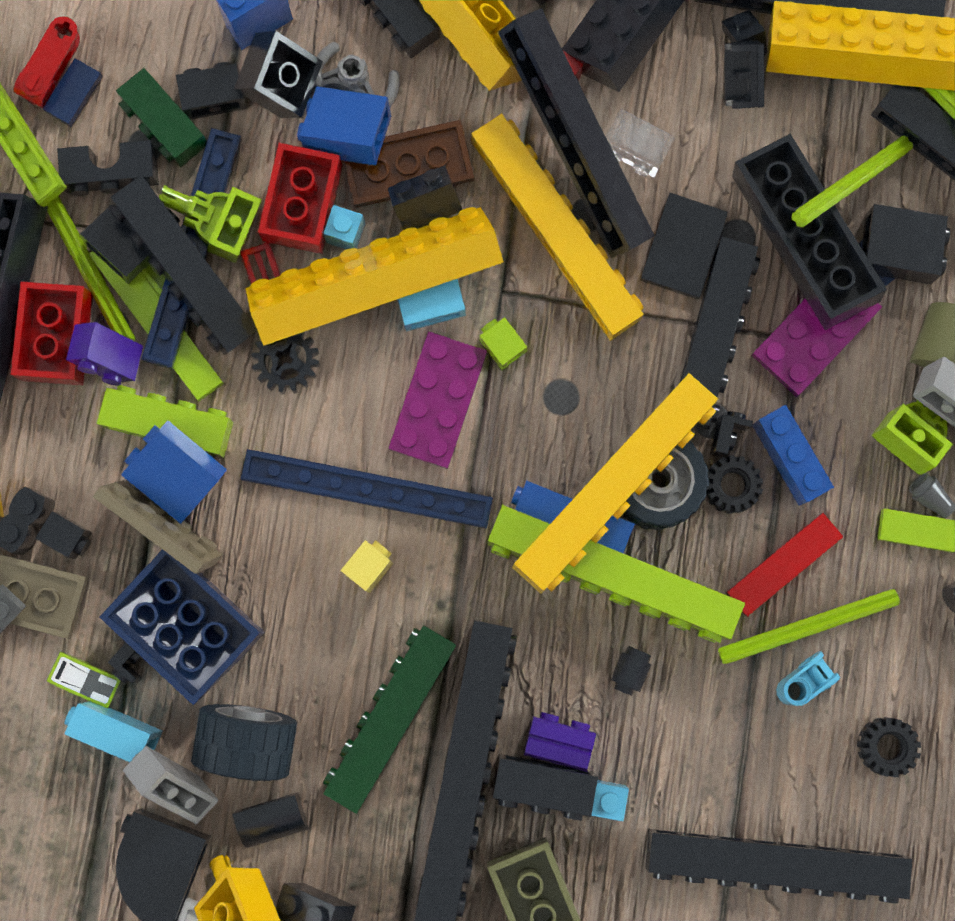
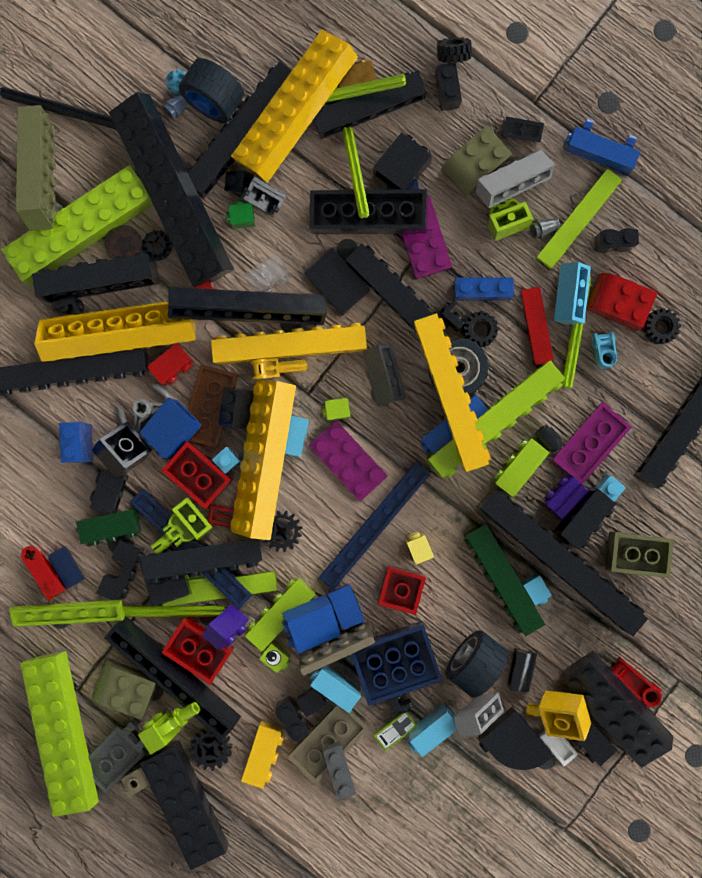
camera: 55 degrees left, 5 degrees up
(99, 449) = (275, 657): none -> lime brick
(101, 554) = (335, 687): none -> medium azure brick
(225, 509) = (346, 606): none -> blue brick
(293, 574) = (401, 589): none -> red brick
(399, 775) = (536, 589): none -> medium azure brick
(436, 79) = (171, 364): none -> red brick
(510, 222) = (272, 368): none -> yellow connector
(566, 651) = (520, 467): none -> lime brick
(590, 383) = (384, 374): none -> dark grey panel
(660, 738) = (591, 443): none -> magenta plate
(700, 62) = (241, 215): none -> green brick
(860, 587) = (572, 293): none -> medium azure brick
(891, 665) = (621, 300): none -> red brick

